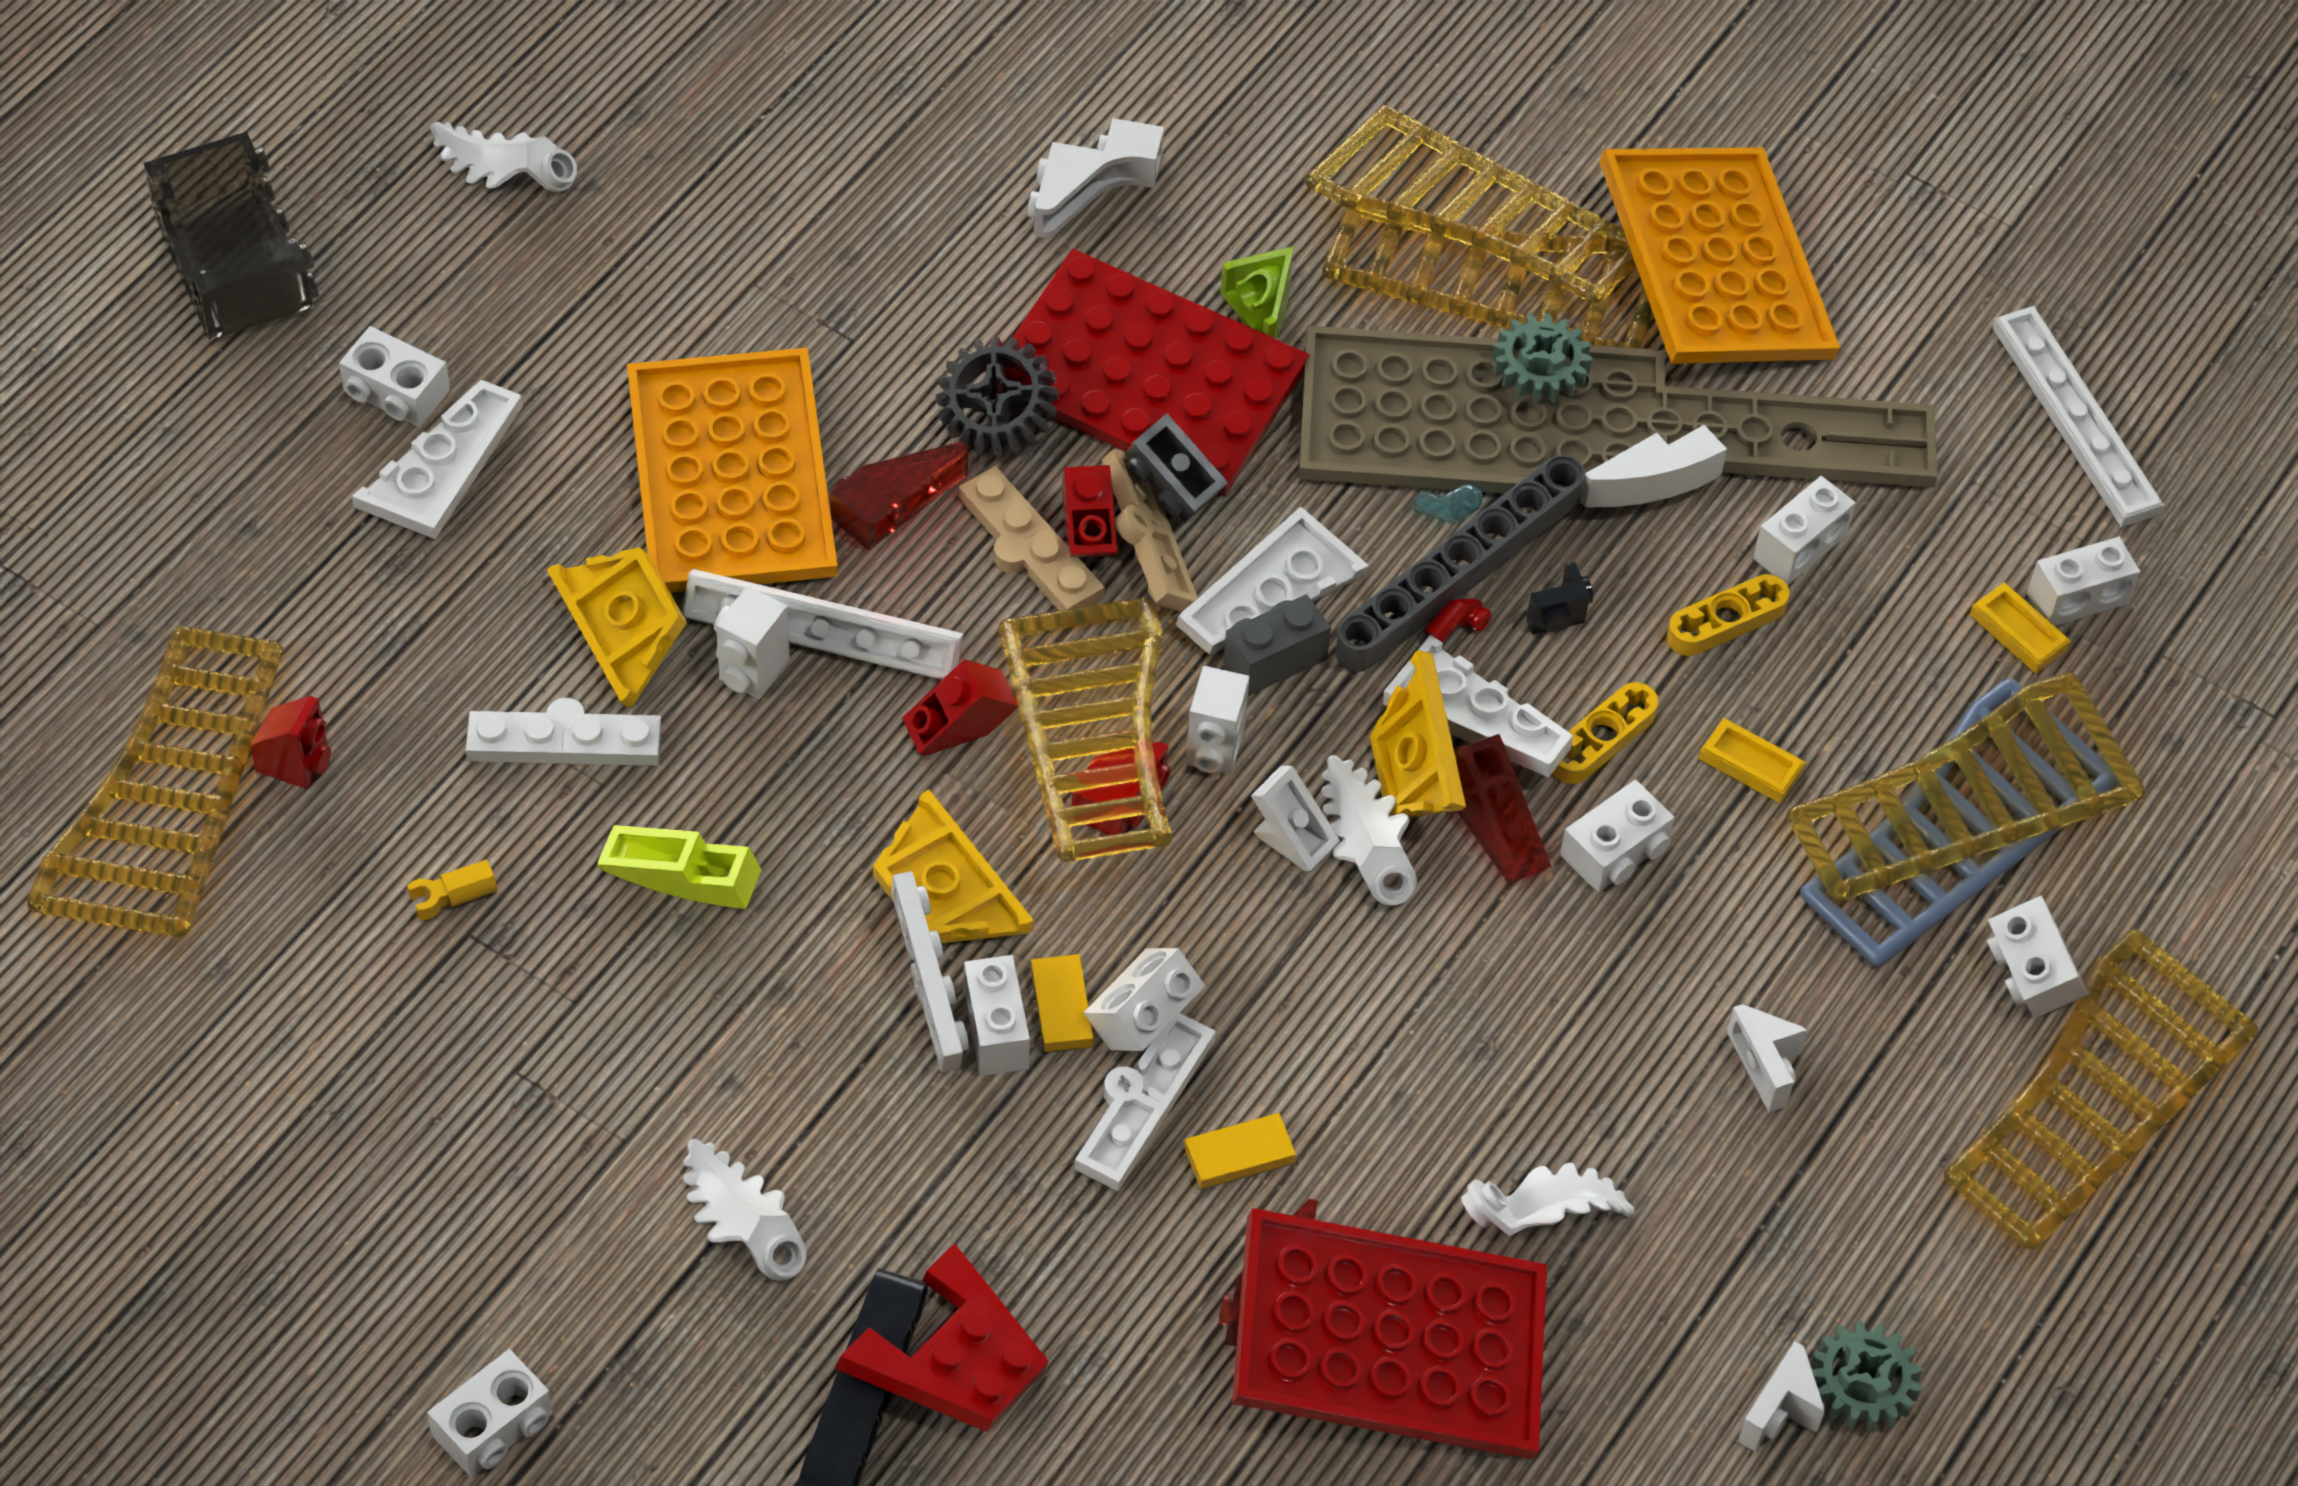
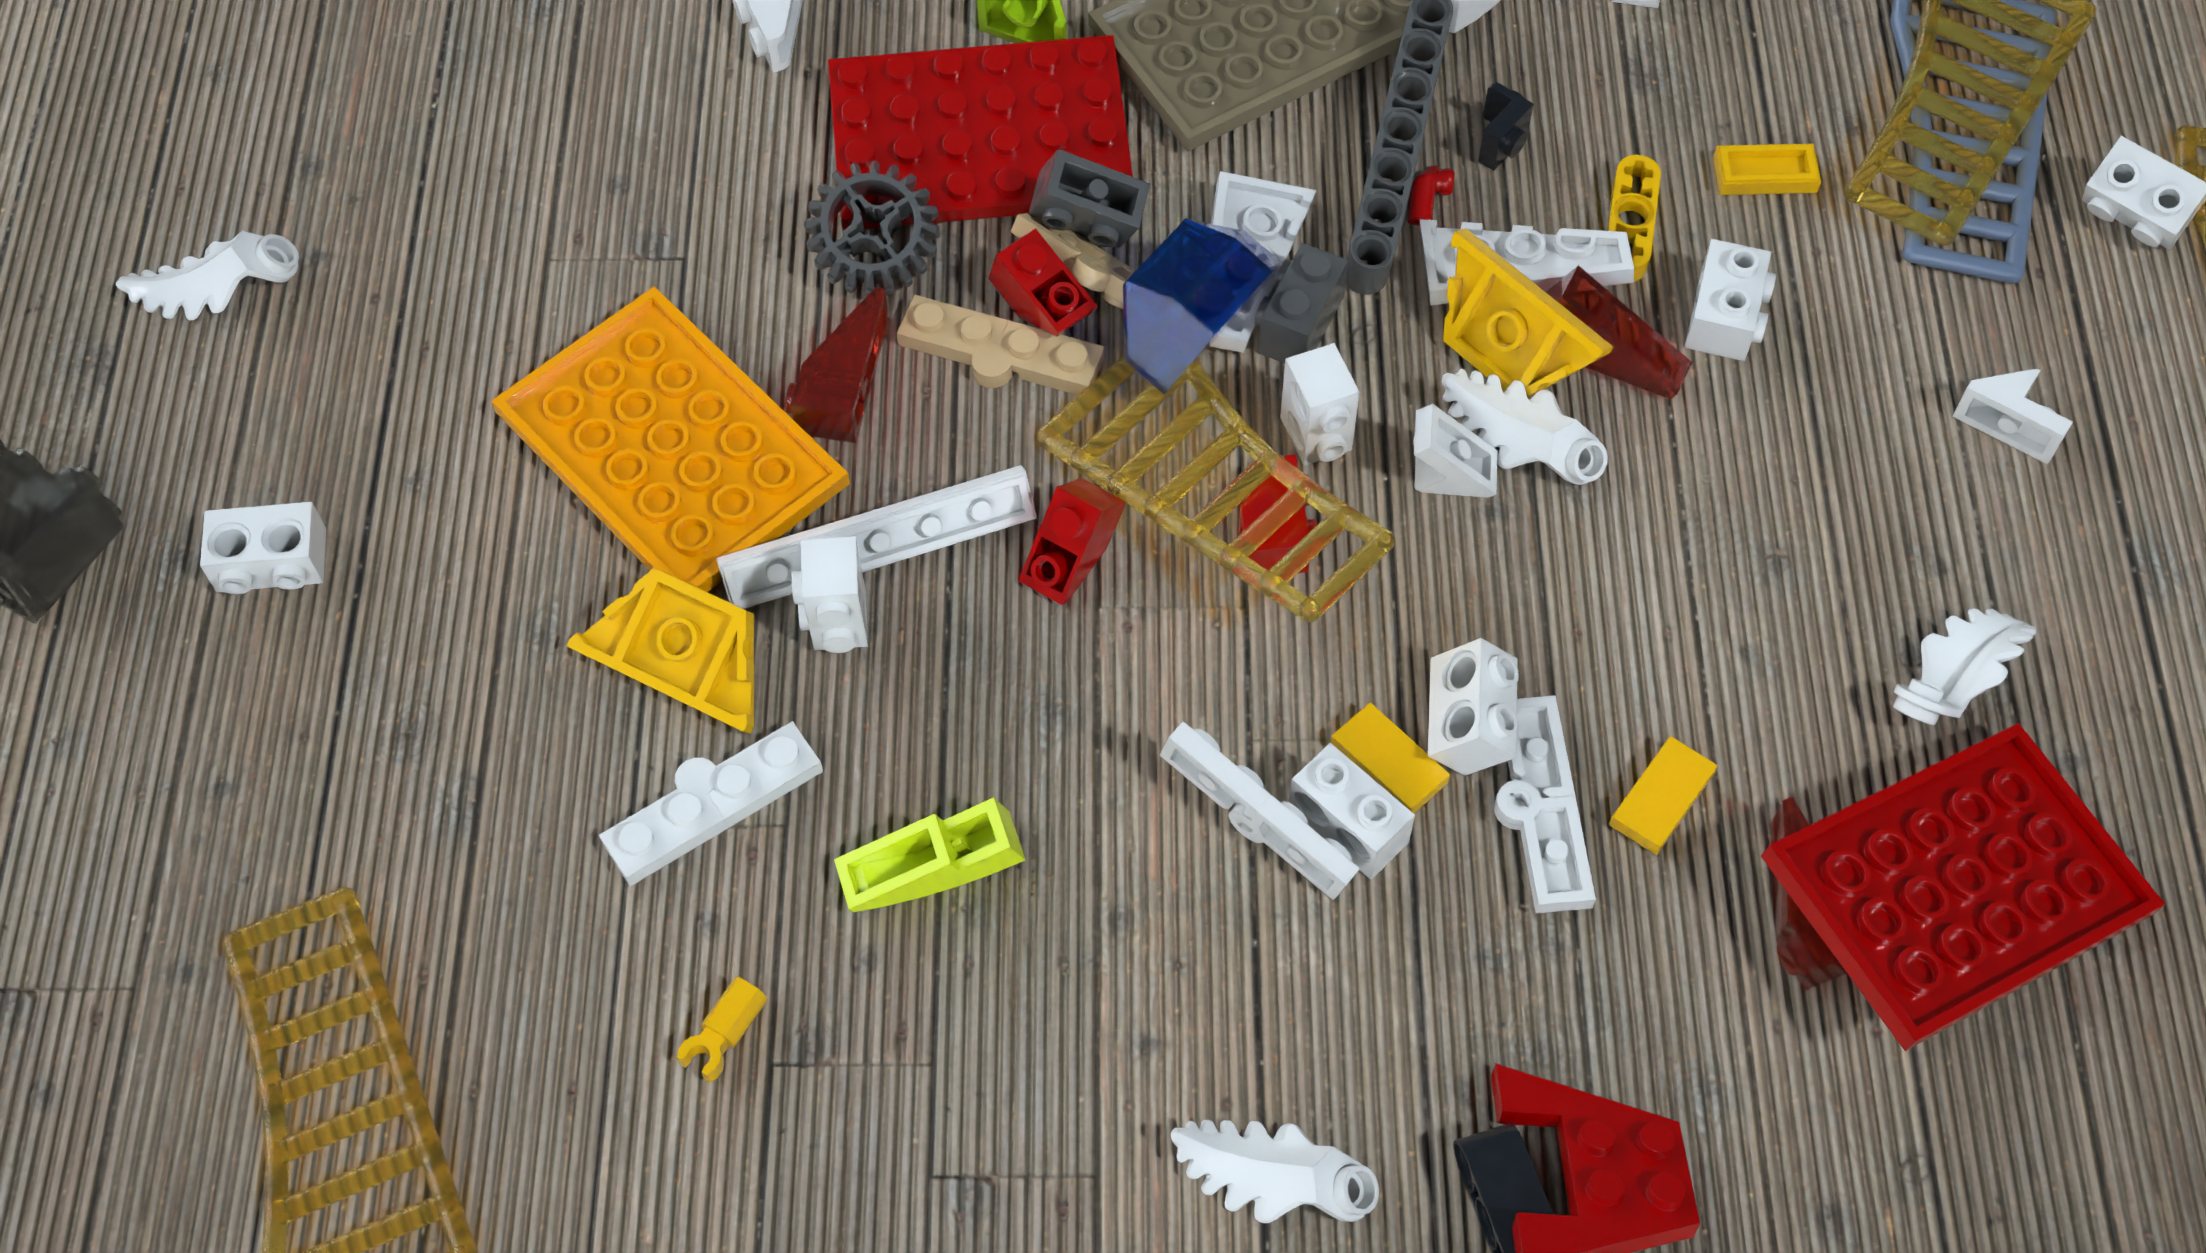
camera: 30 degrees left, 5 degrees up
(292, 743) = (444, 983): red slope -> none
(442, 464) = (378, 605): white wing -> none
(961, 886) = (1160, 690): yellow wing -> none
(1188, 583) = (1189, 296): none -> clear blue wedge
(1452, 506) = (1337, 101): clear light blue arm -> none
(1718, 631) = (1640, 74): yellow beam -> none

